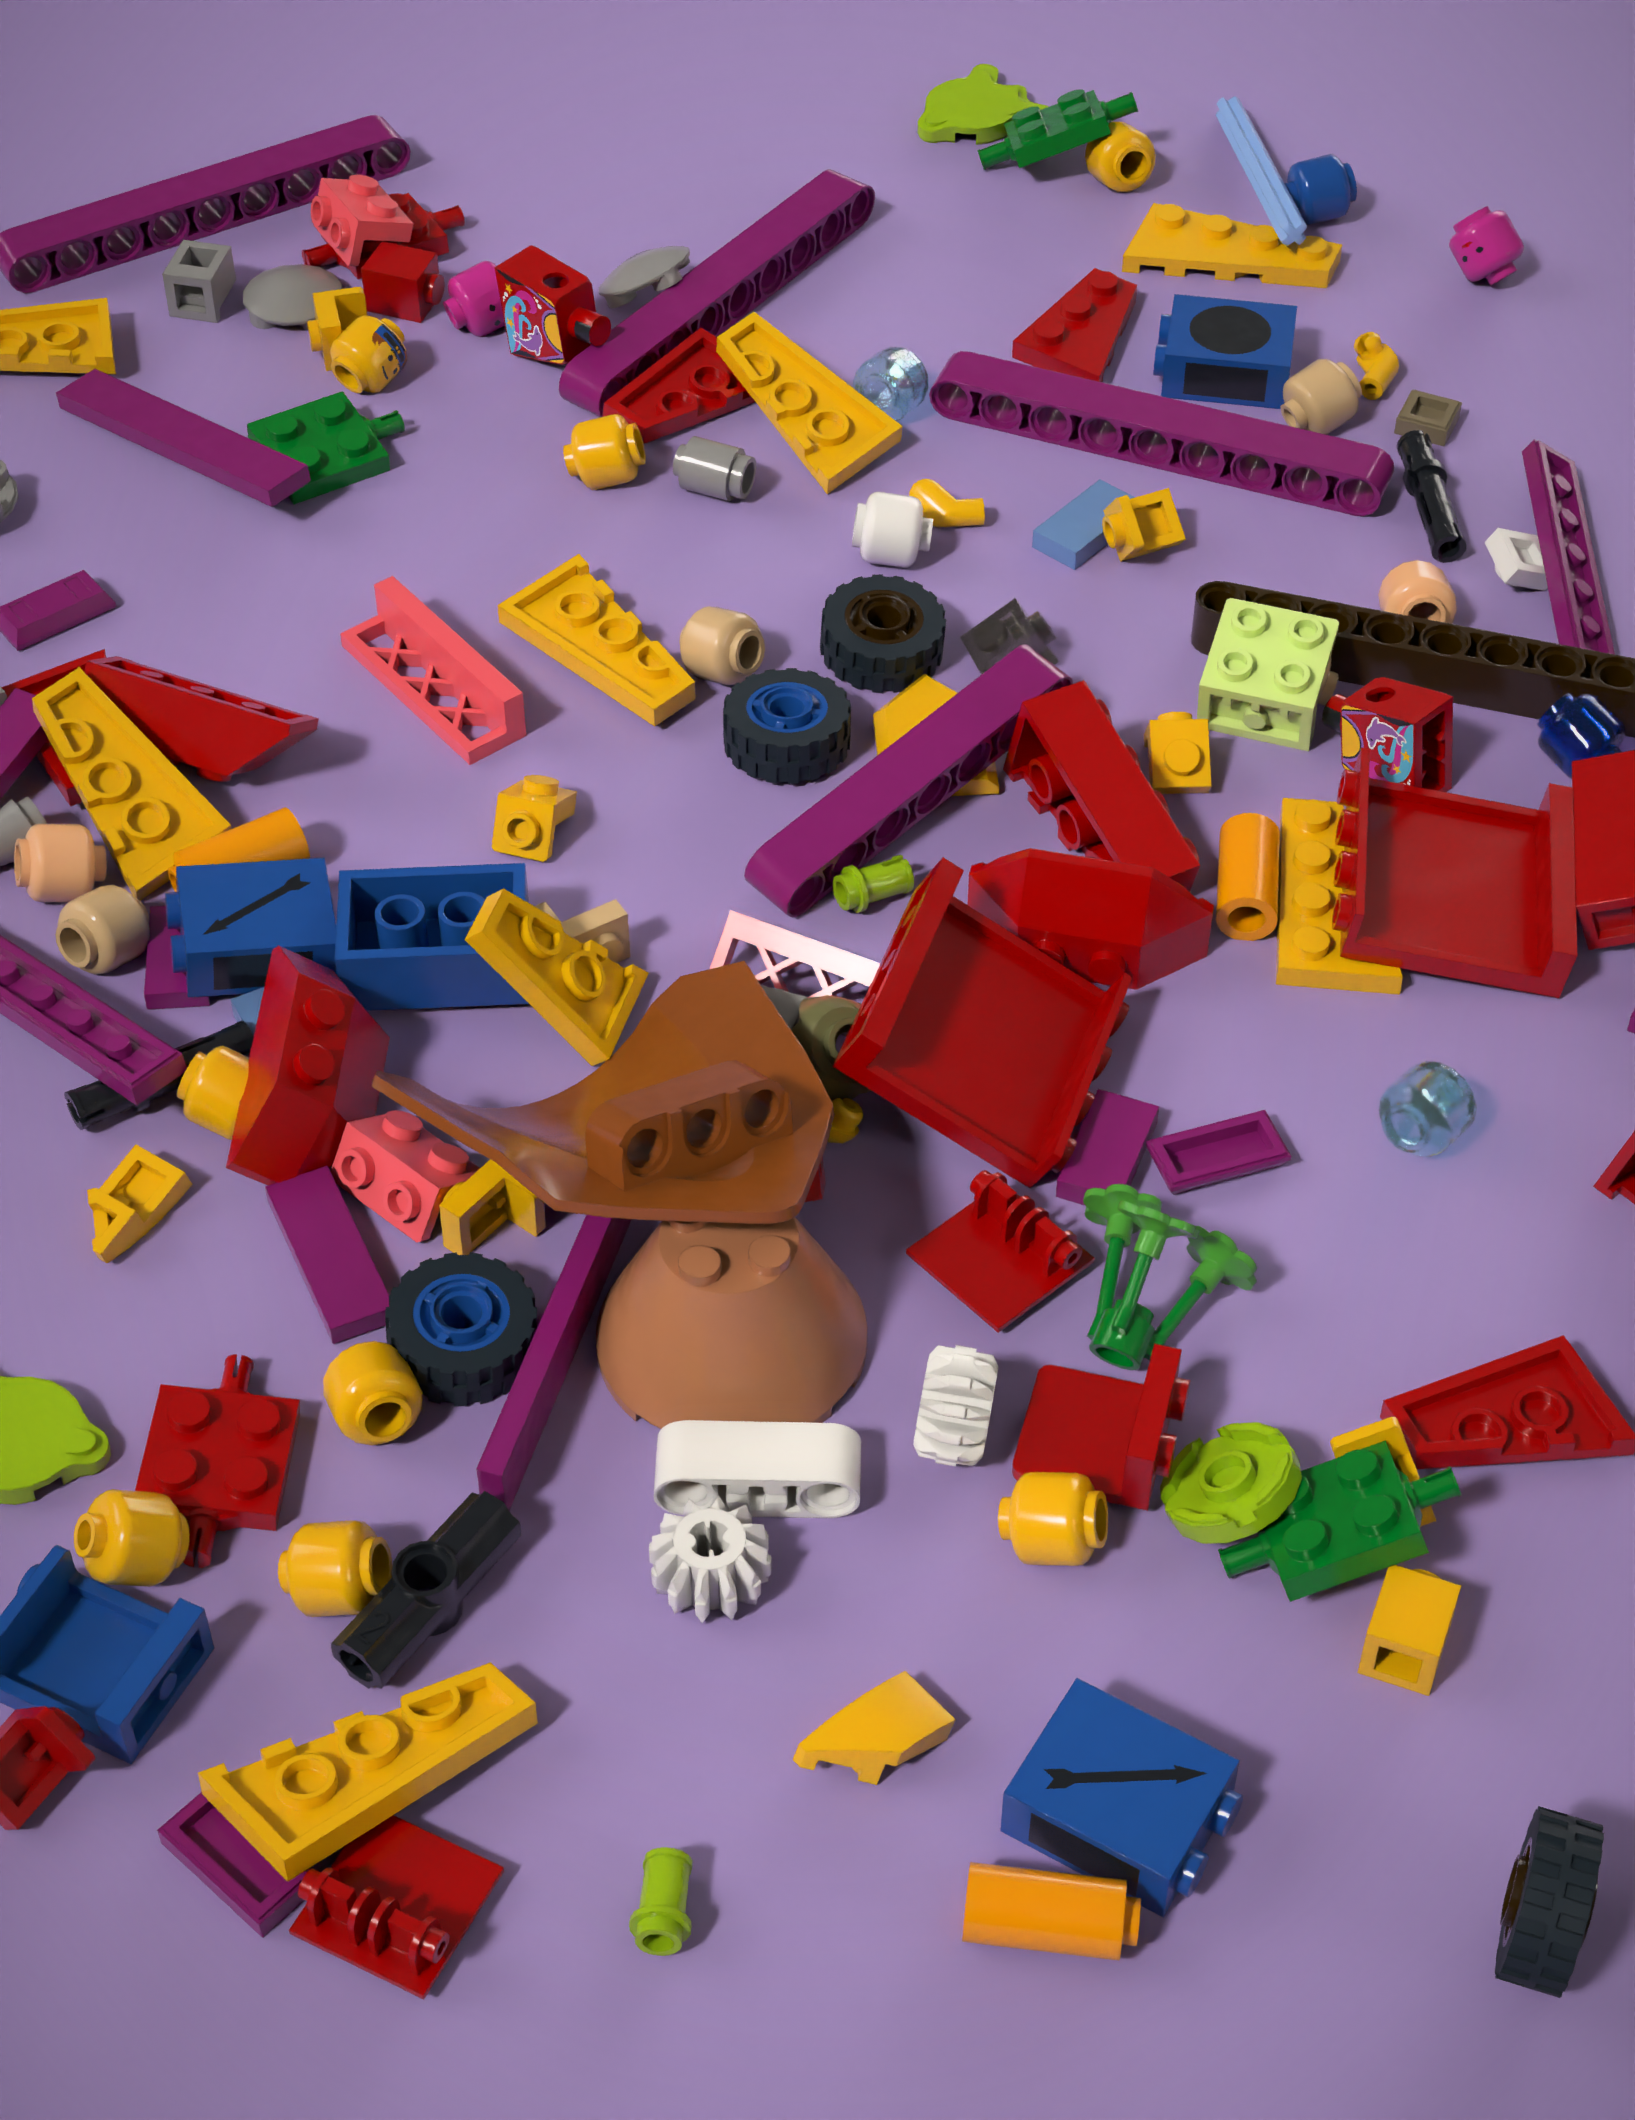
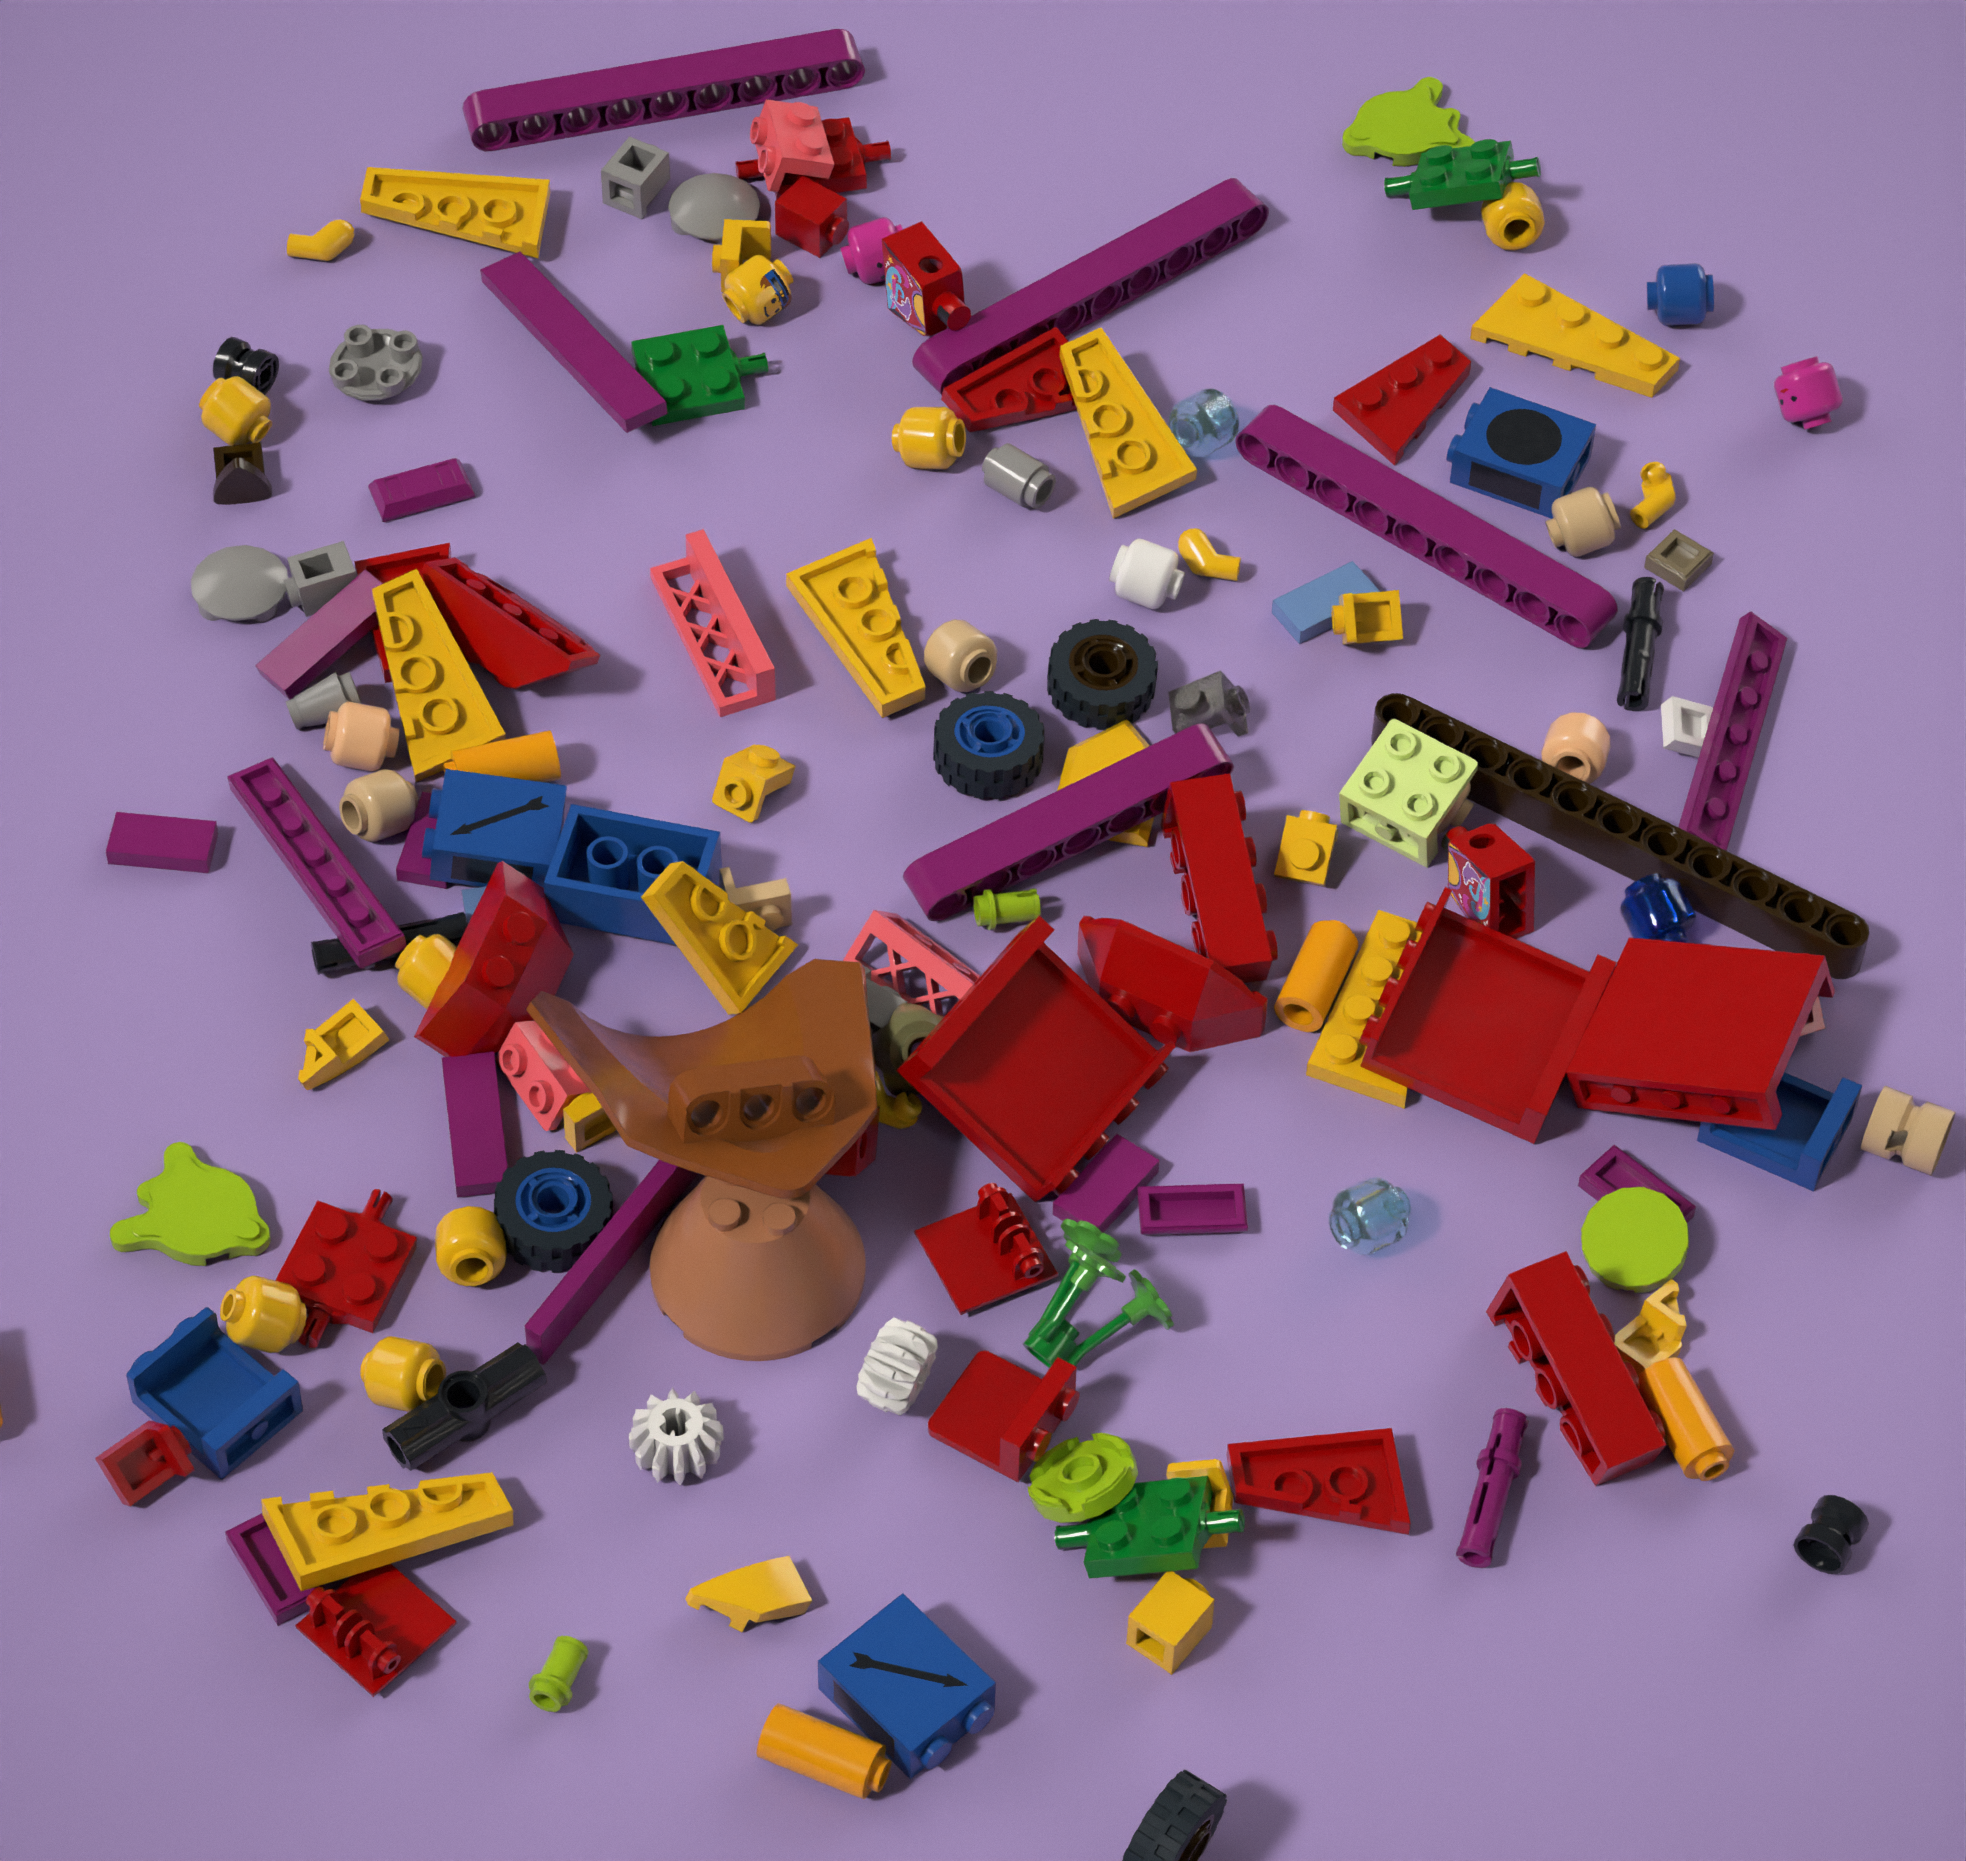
camera: 15 degrees right, 5 degrees up
(651, 267) = (1026, 255): light grey dish -> none
(762, 1465) = (737, 1376): white beam -> none
(1054, 1518) = (940, 1471): yellow head -> none
(1261, 171) = (1635, 261): light blue axle -> none

